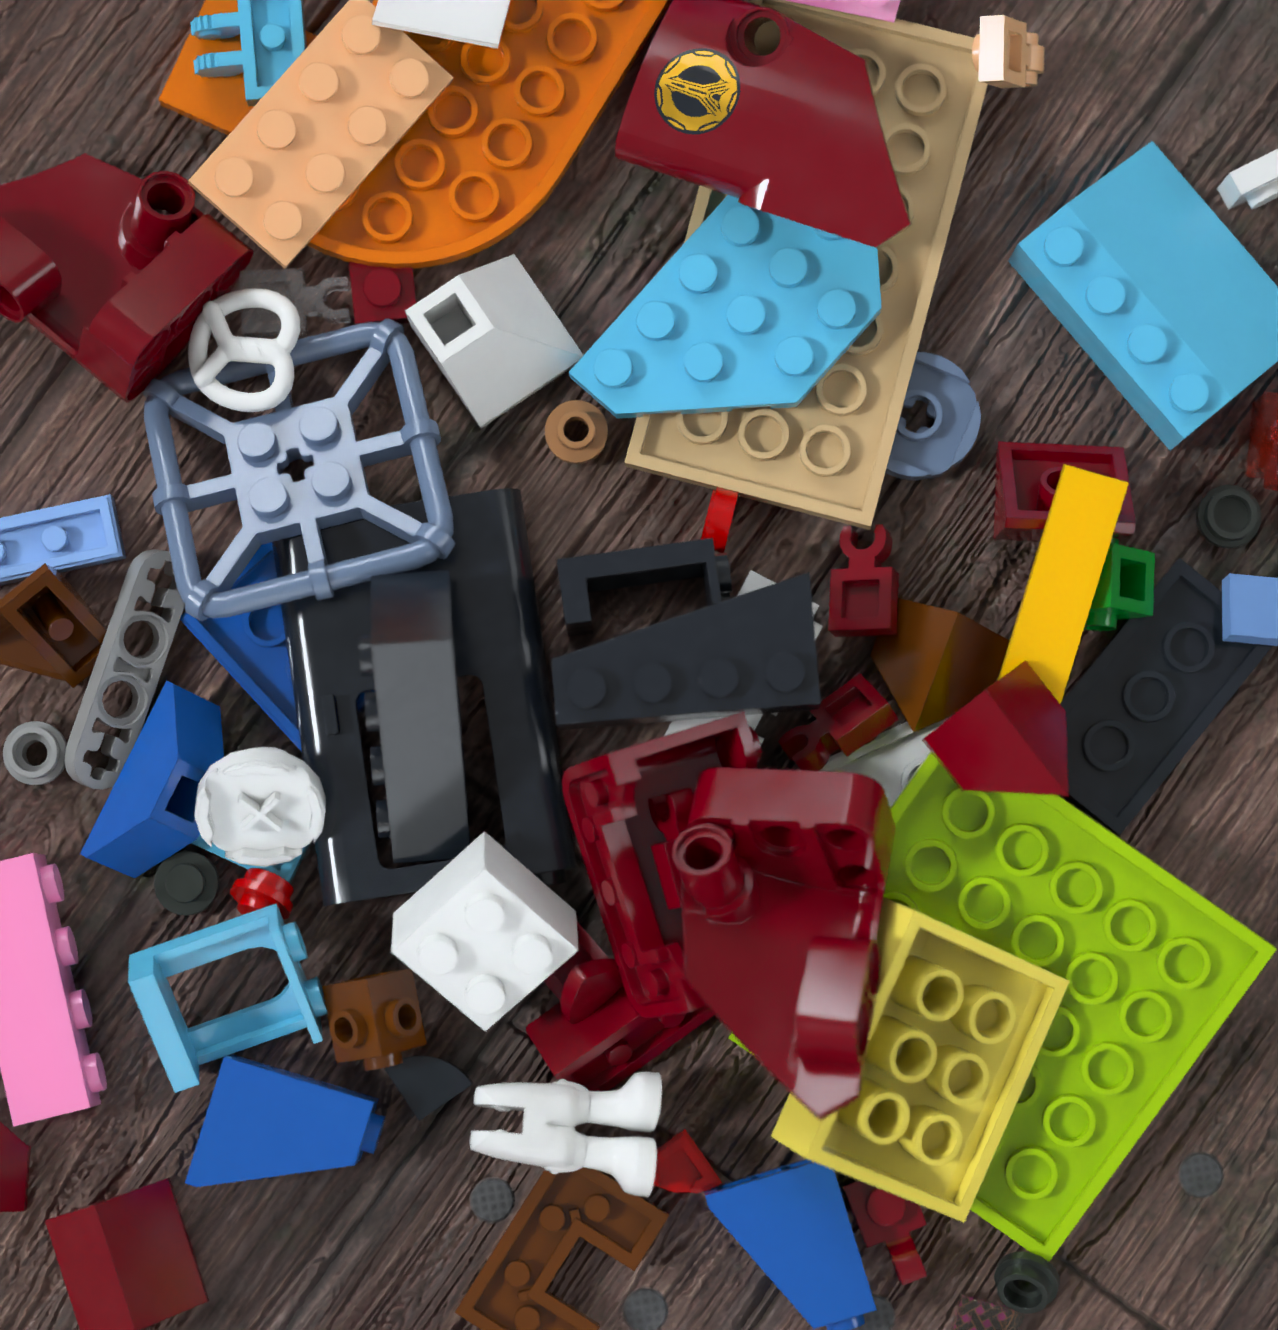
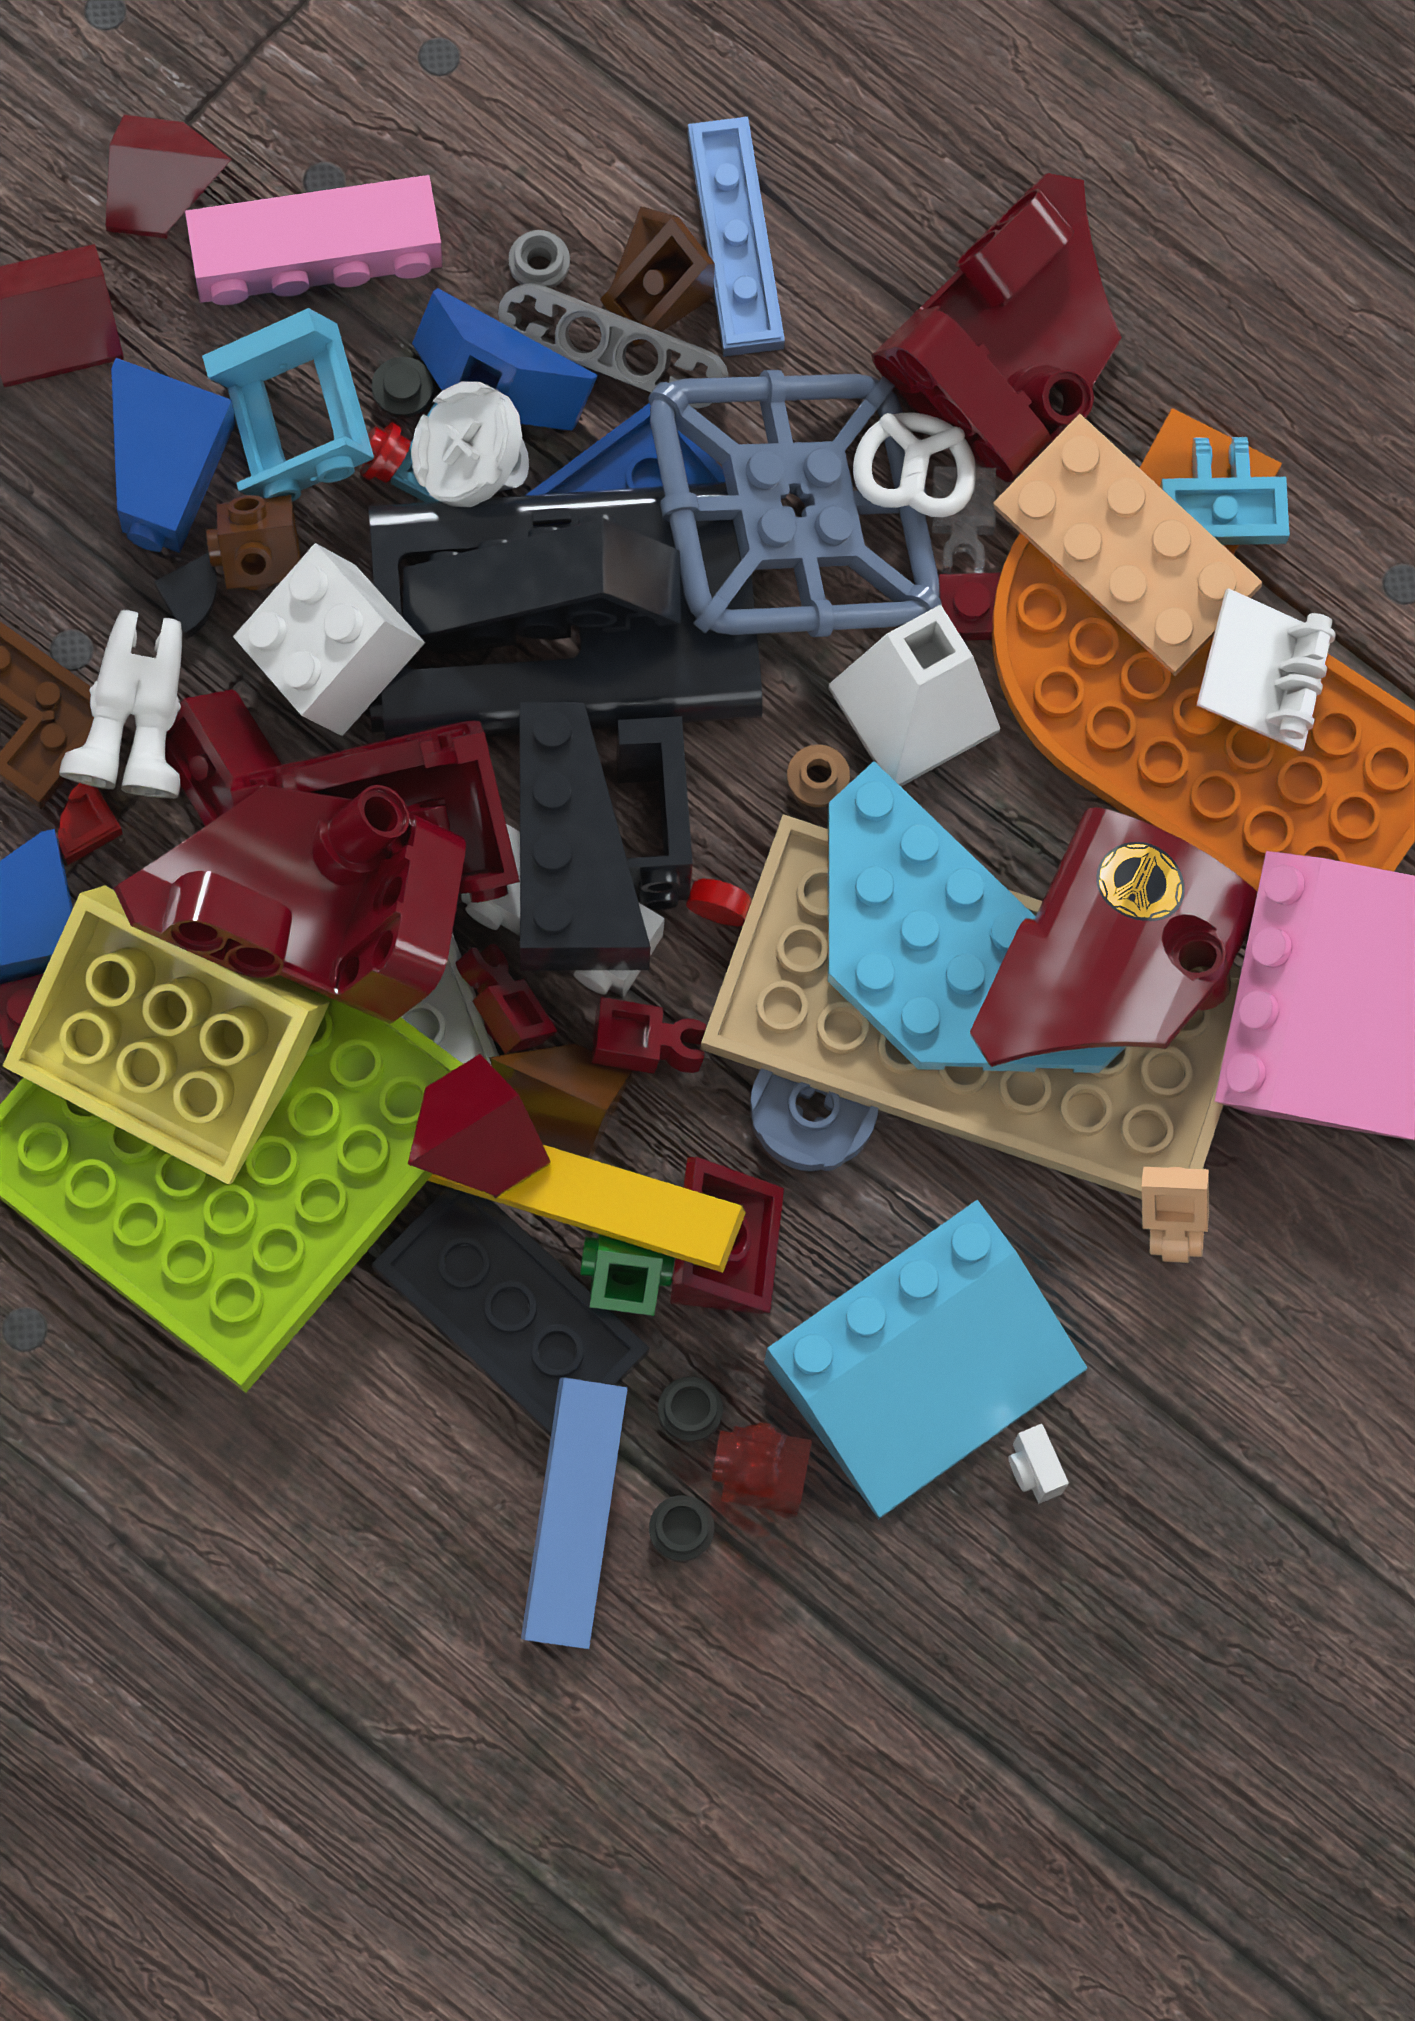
camera: 90 degrees right, 10 degrees down
(584, 979) = (282, 735): dark red tile -> none

